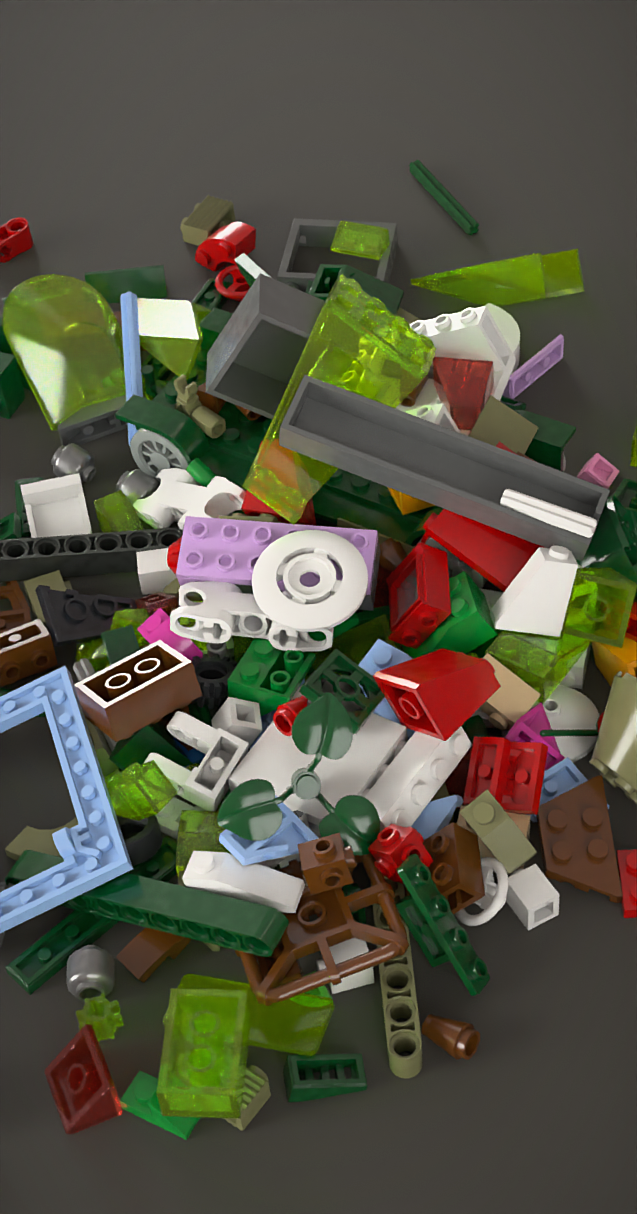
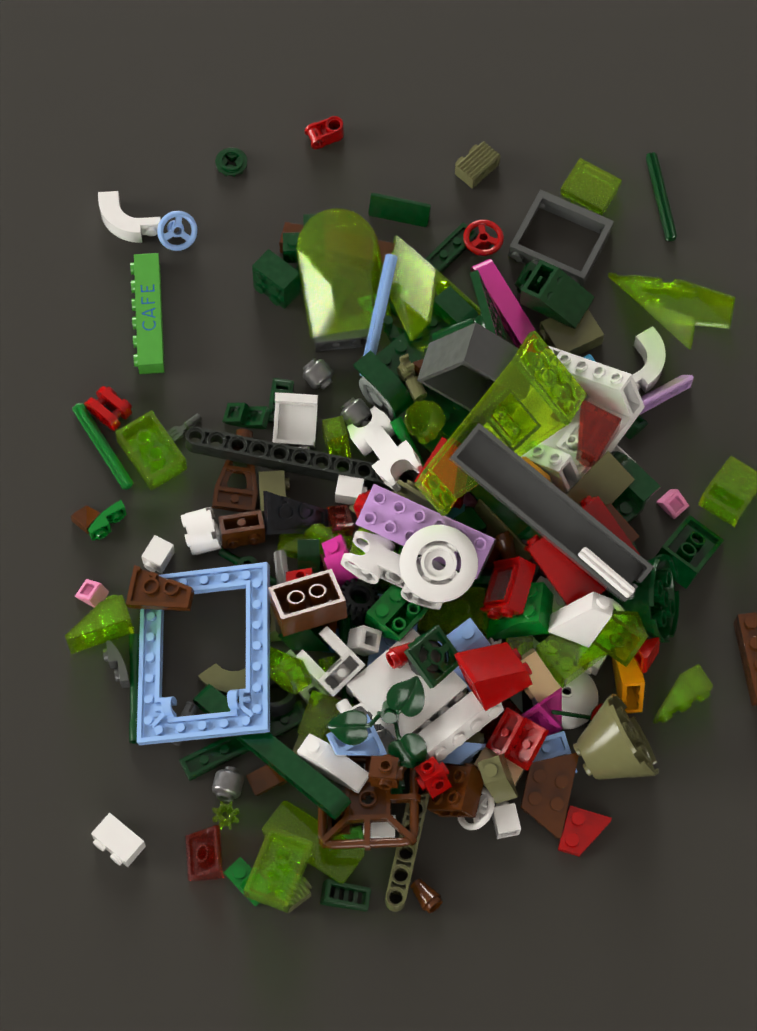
camera: 10 degrees right, 20 degrees up
(226, 245) = (482, 200): red brick -> none
(231, 449) = (424, 420): none -> clear neon green hair
(355, 202) = (590, 186): none -> clear neon green piece
(360, 240) = (580, 234): clear neon green slope -> none
(436, 928) = (440, 829): dark green bracket -> none

